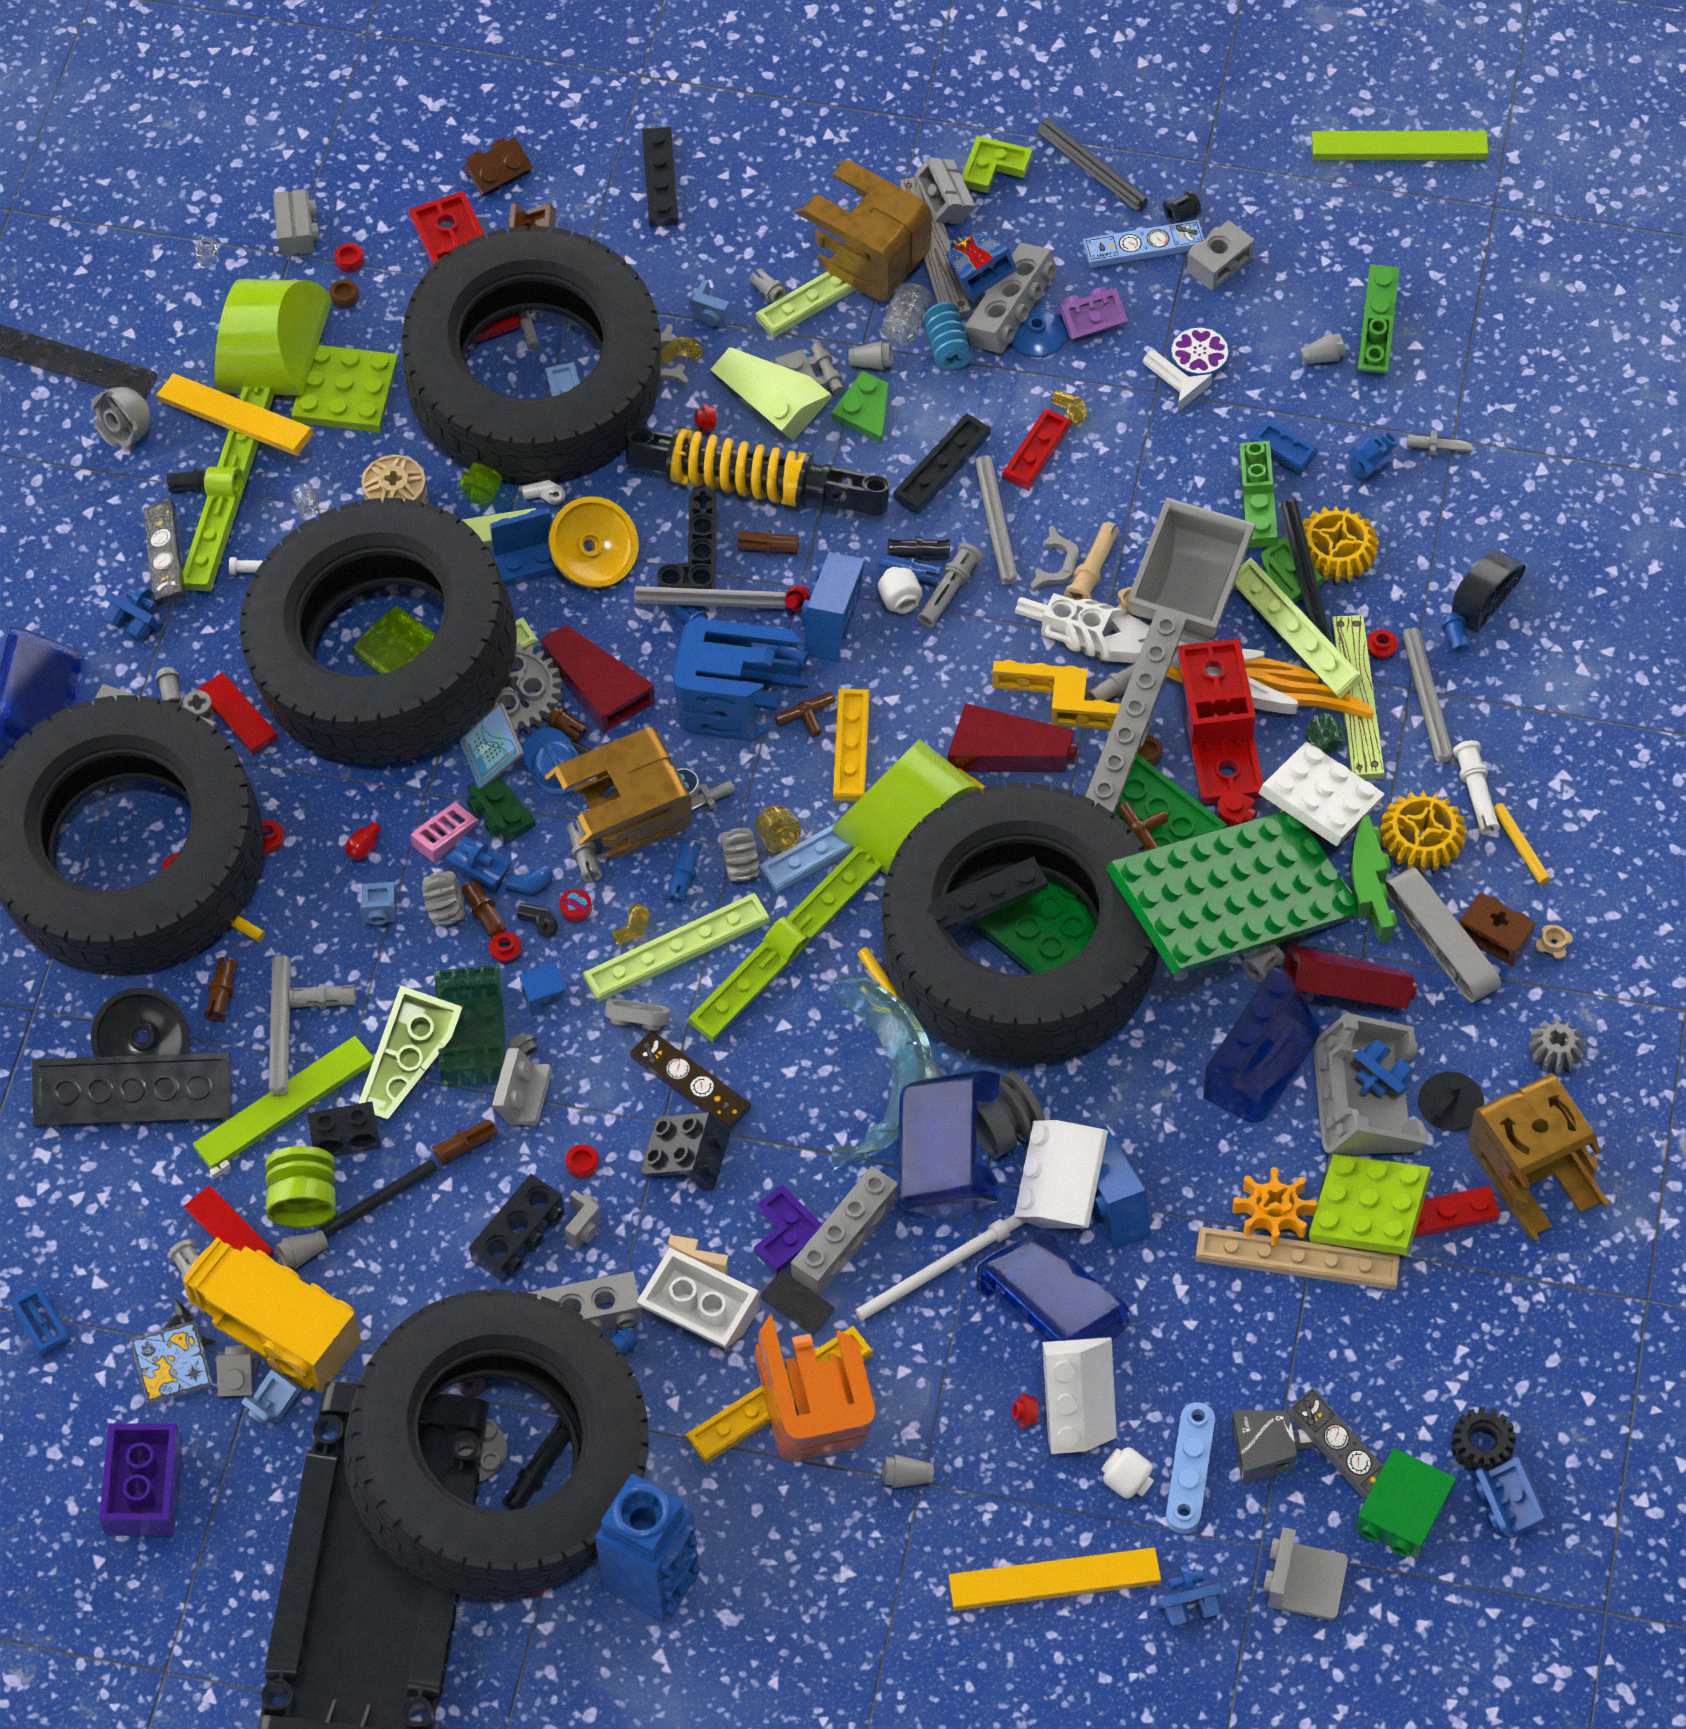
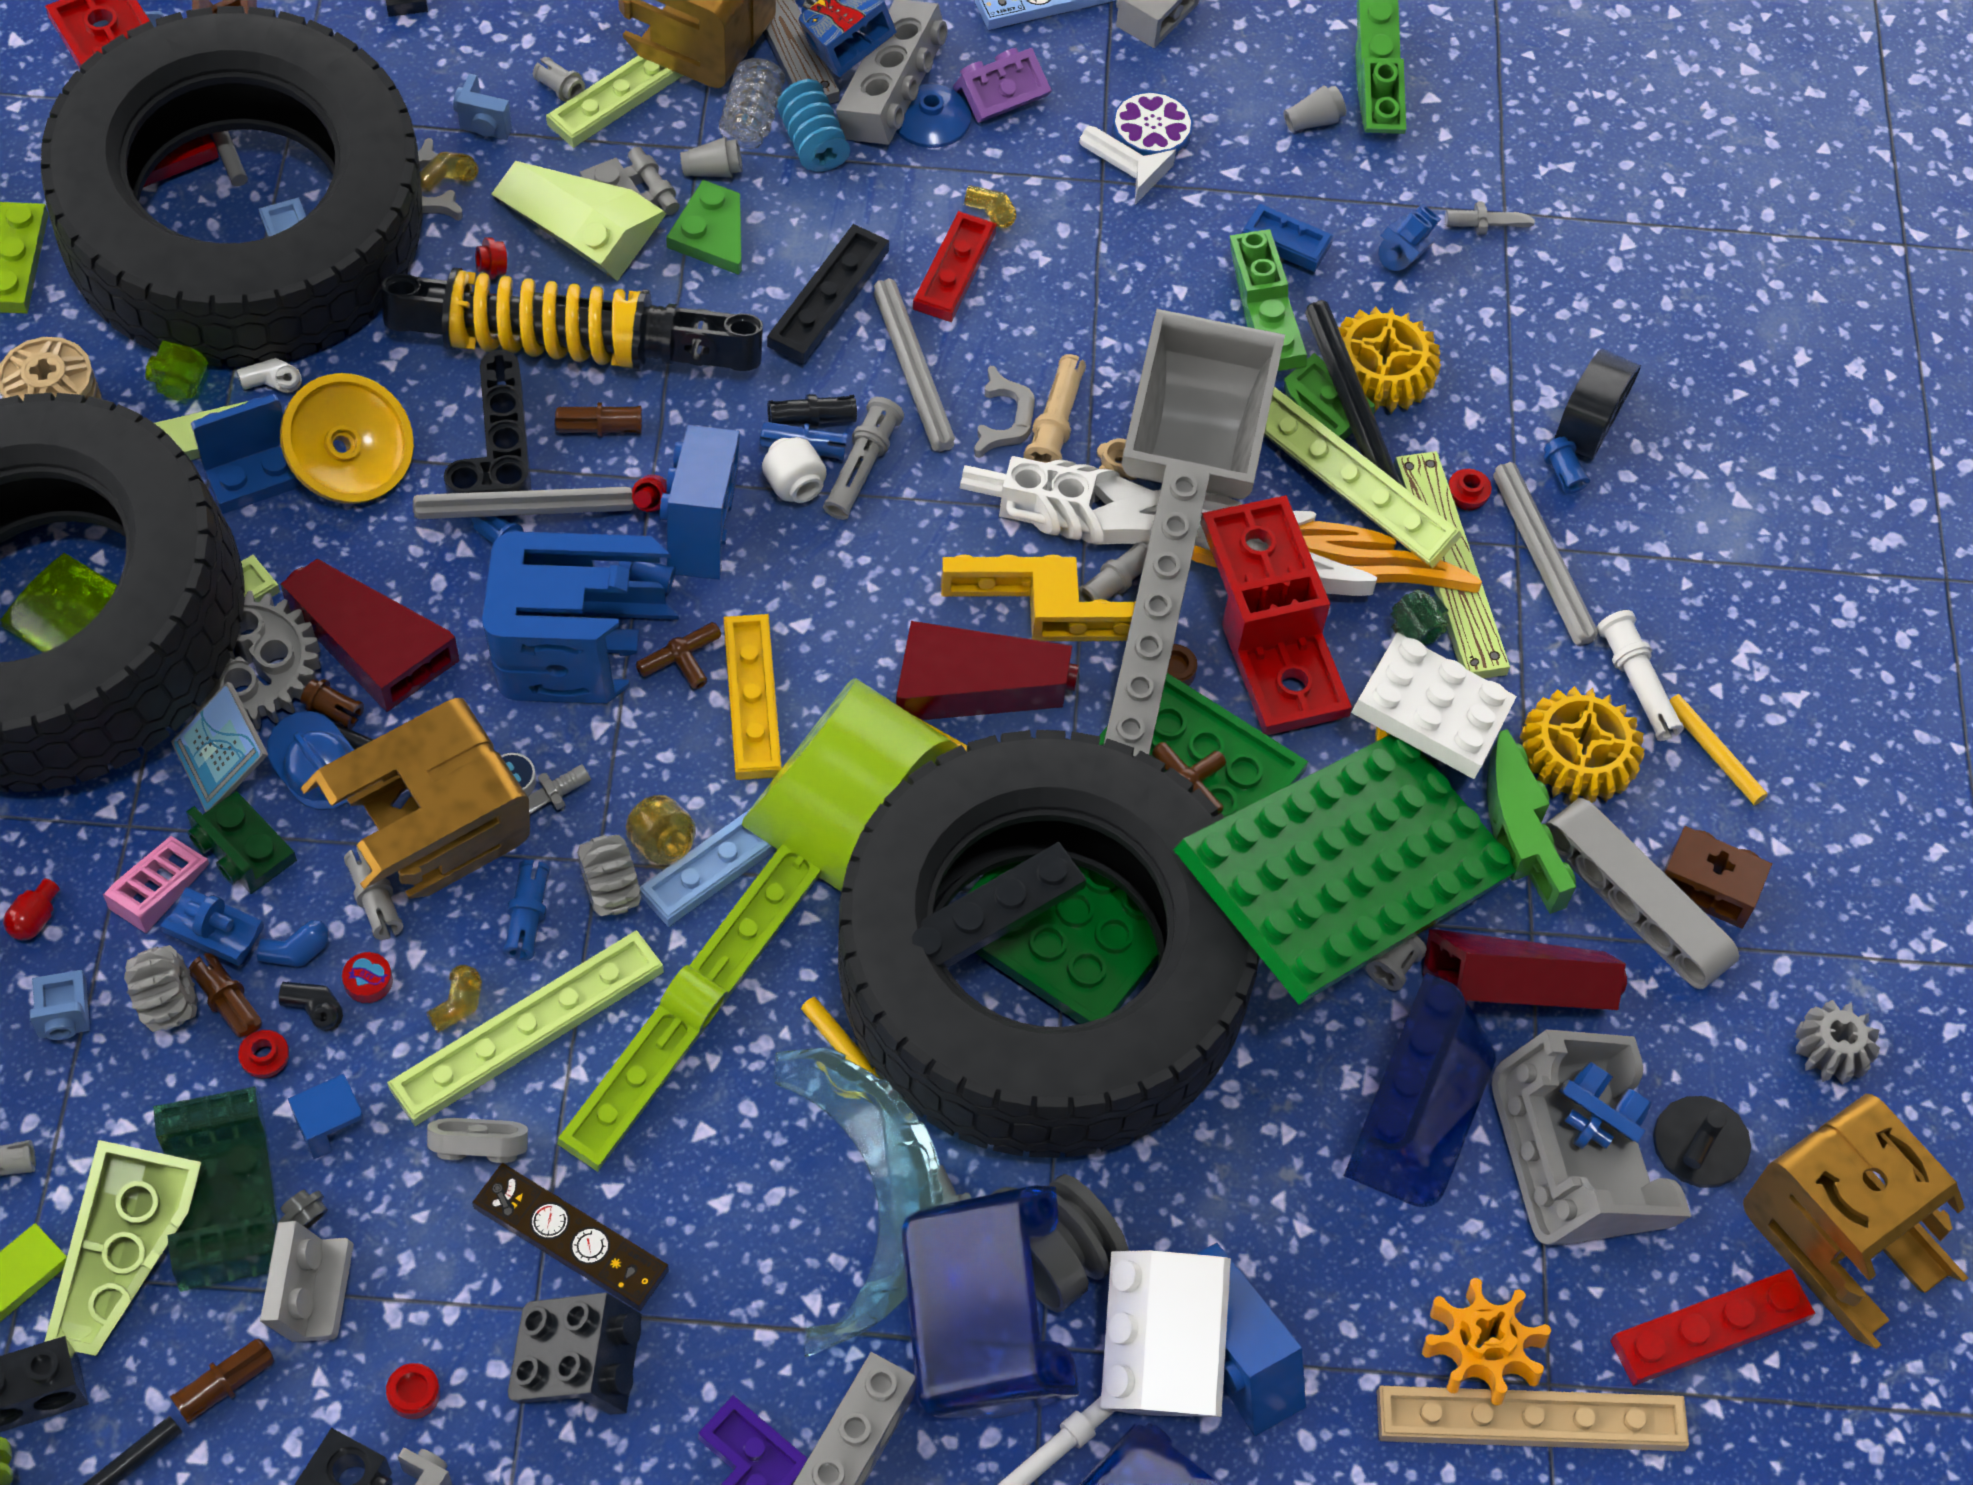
camera: 15 degrees left, 0 degrees up
(1236, 808) = (1317, 740): red plate -> none
(1370, 1204) = (1628, 1322): lime plate -> none
(1555, 933) = (1802, 878): tan plate -> none

